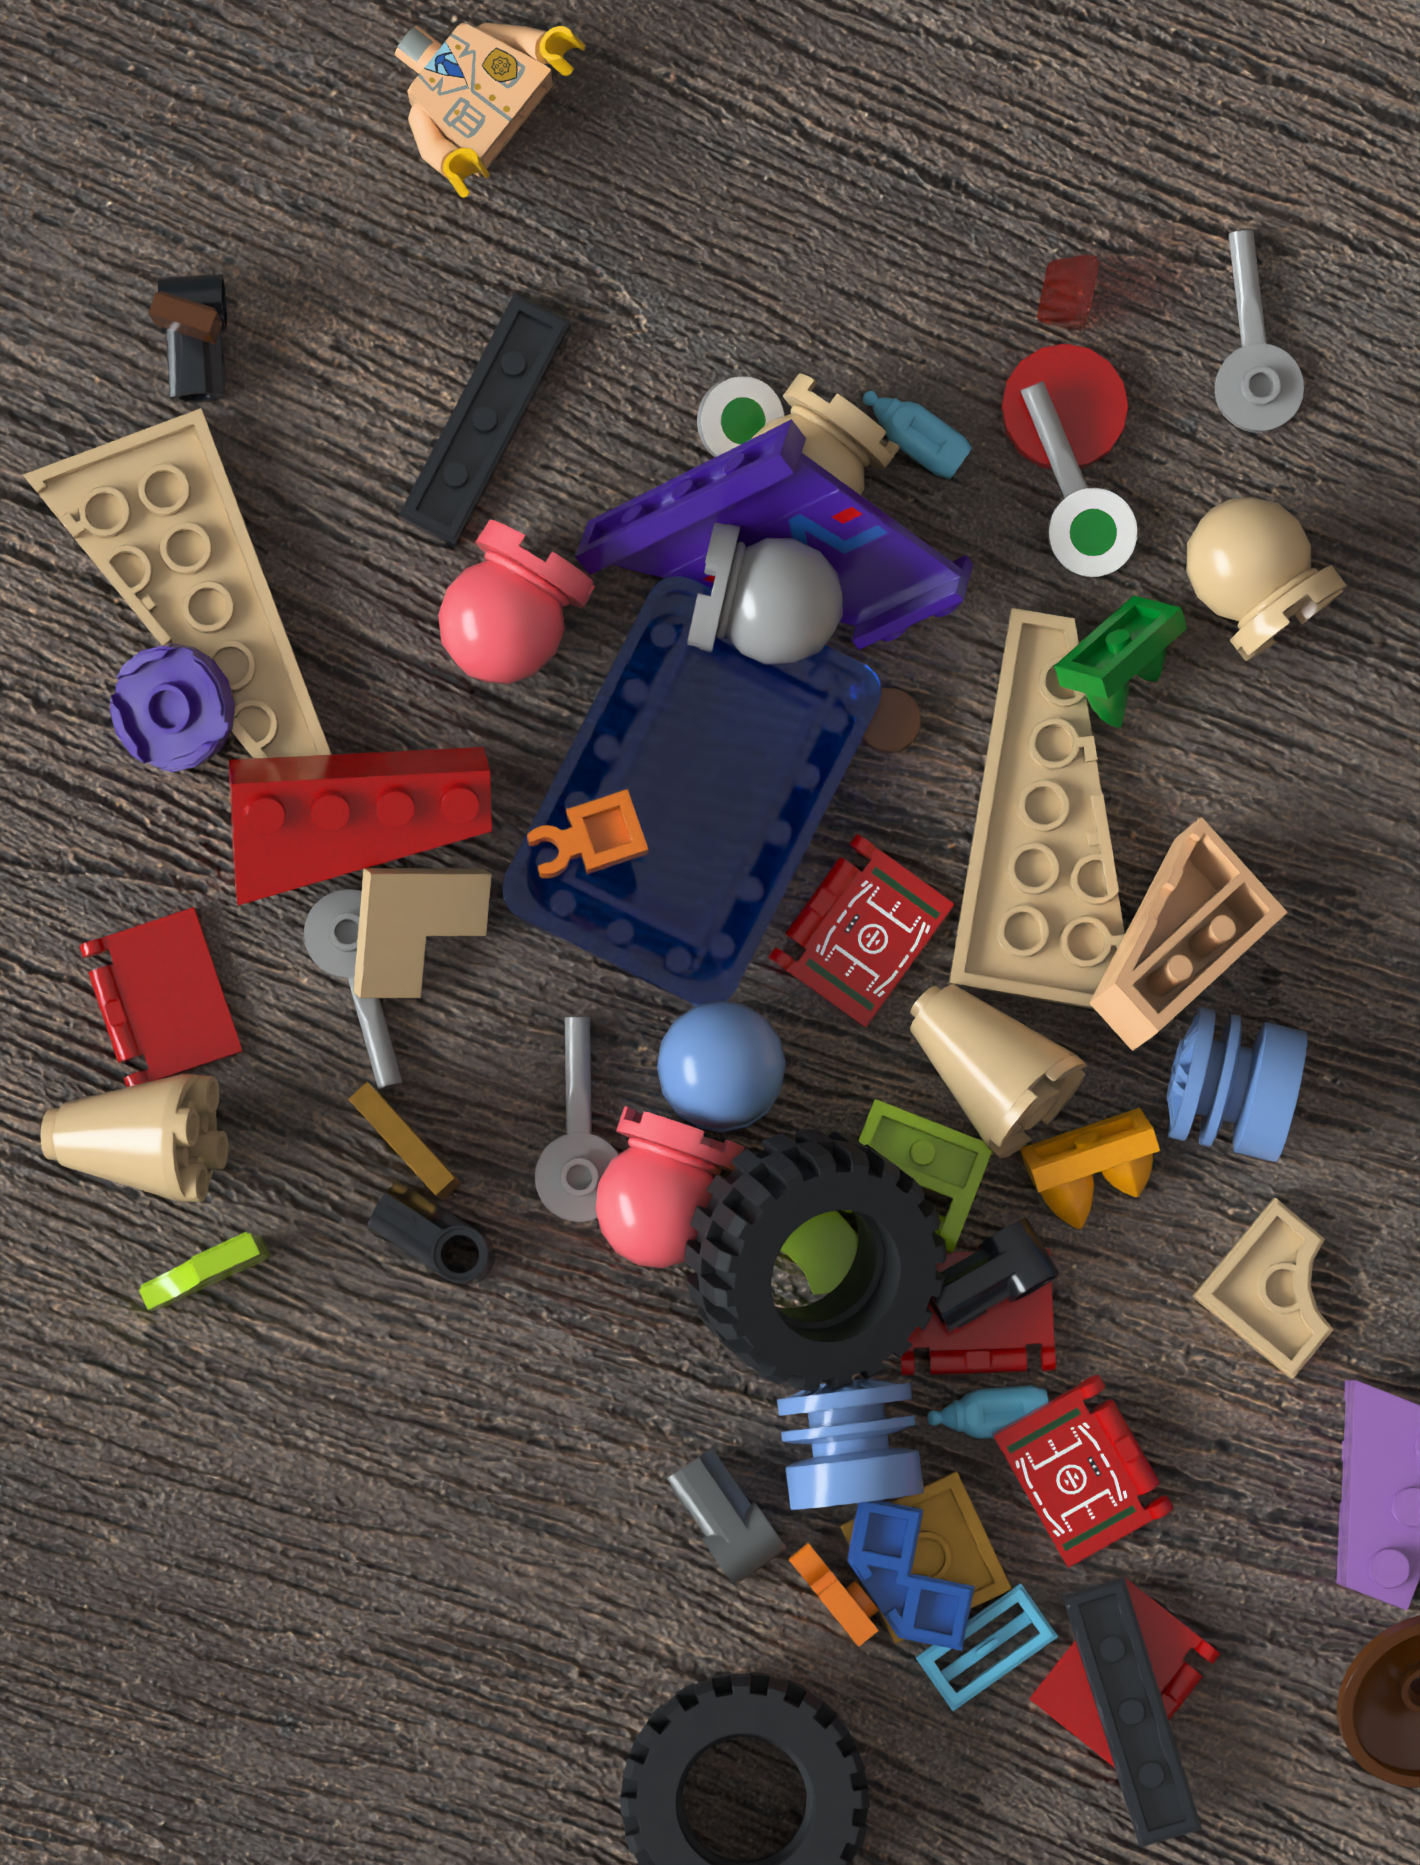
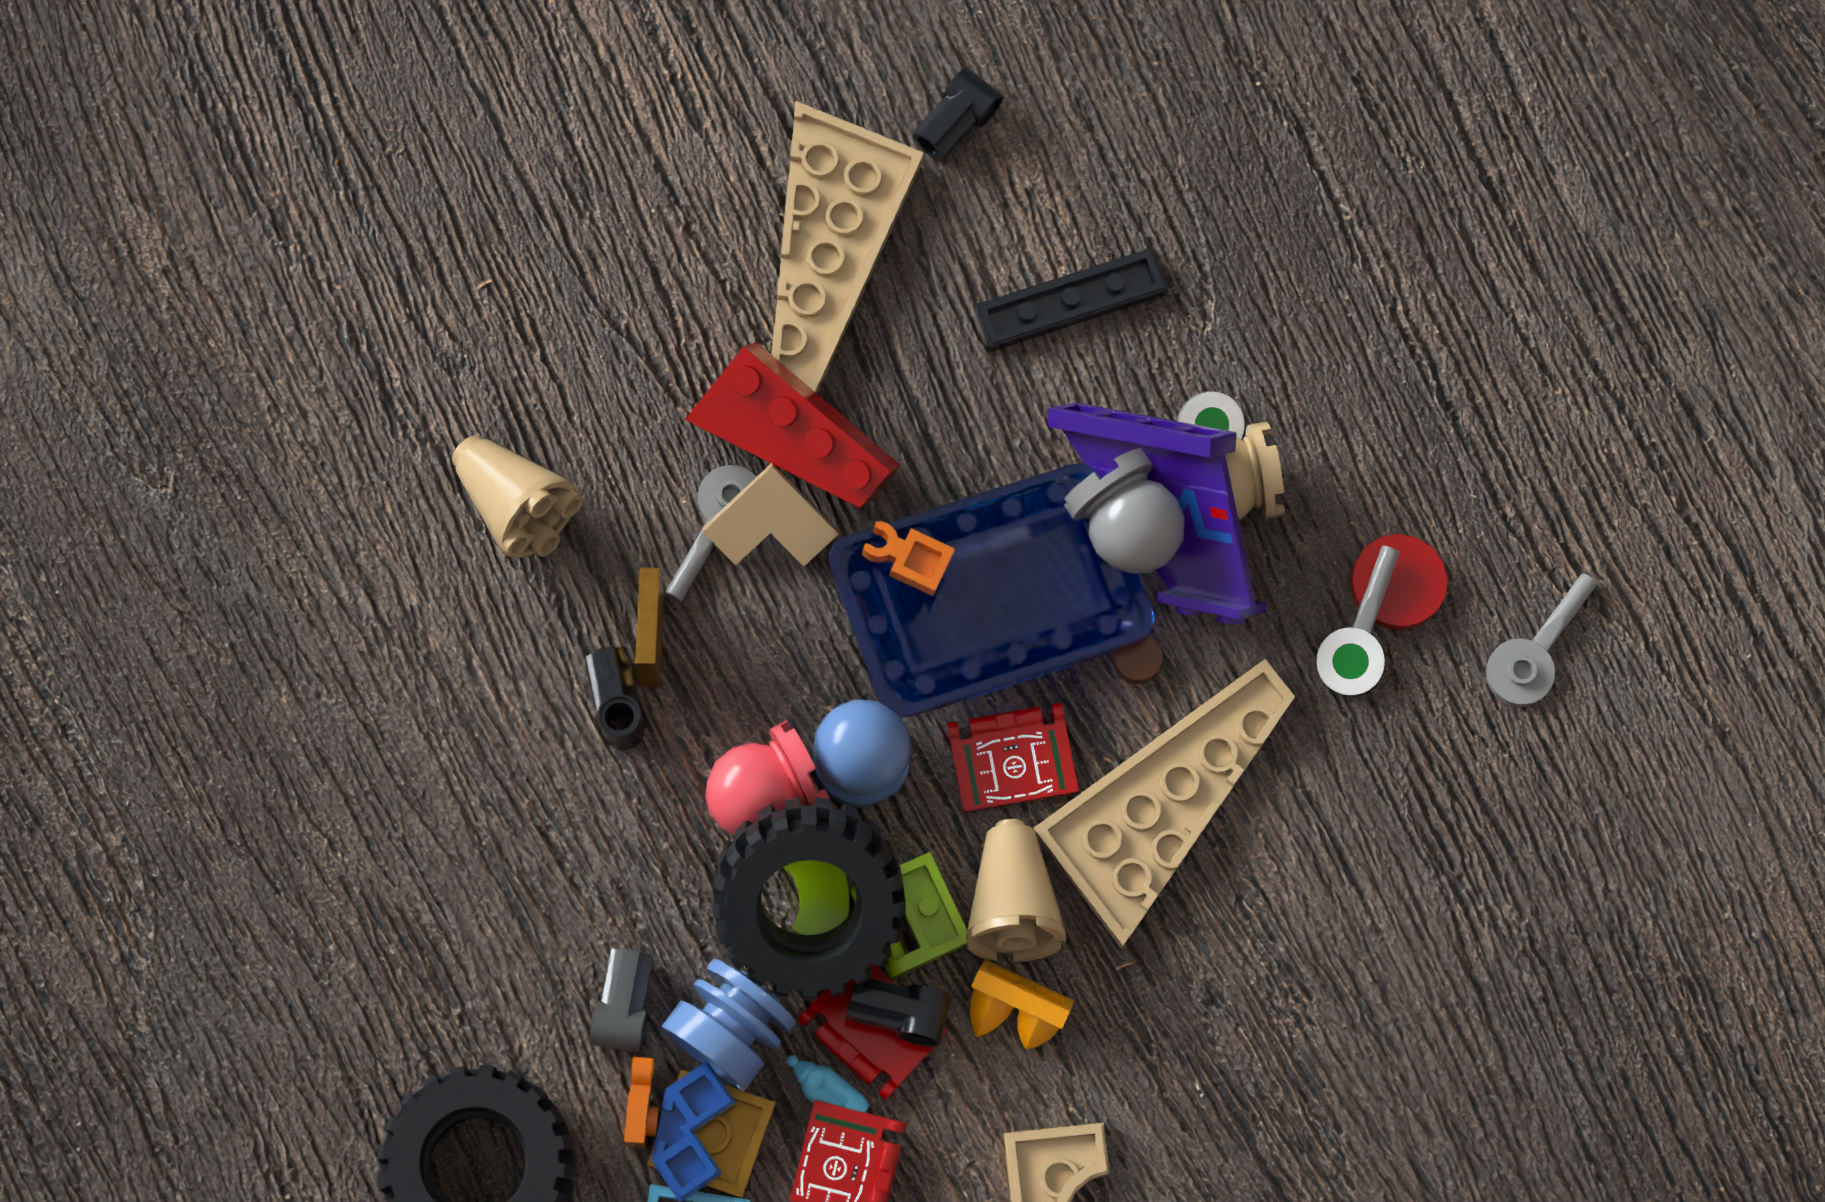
camera: 40 degrees right, 10 degrees down
(162, 997) = (599, 437): red piece -> none
(172, 707) = (754, 290): dark purple tile -> none
(185, 316) = (960, 92): reddish brown tile -> none
(204, 1270) = (477, 596): lime tile -> none
(478, 90) = (1234, 126): light nougat torso -> none
(507, 612) = (983, 401): coral tile -> none
(575, 1162) = (731, 728): light grey piece -> none
(920, 434) = (1304, 523): medium azure piece -> none
(1068, 292) = (1461, 523): clear red slope -> none
(1122, 646) = (1314, 736): green tile -> none
(1184, 934) = (1191, 924): light nougat wedge -> none
(1237, 1084) = (1140, 1032): medium blue wheel -> none
(1256, 568) = (1423, 761): tan tile -> none

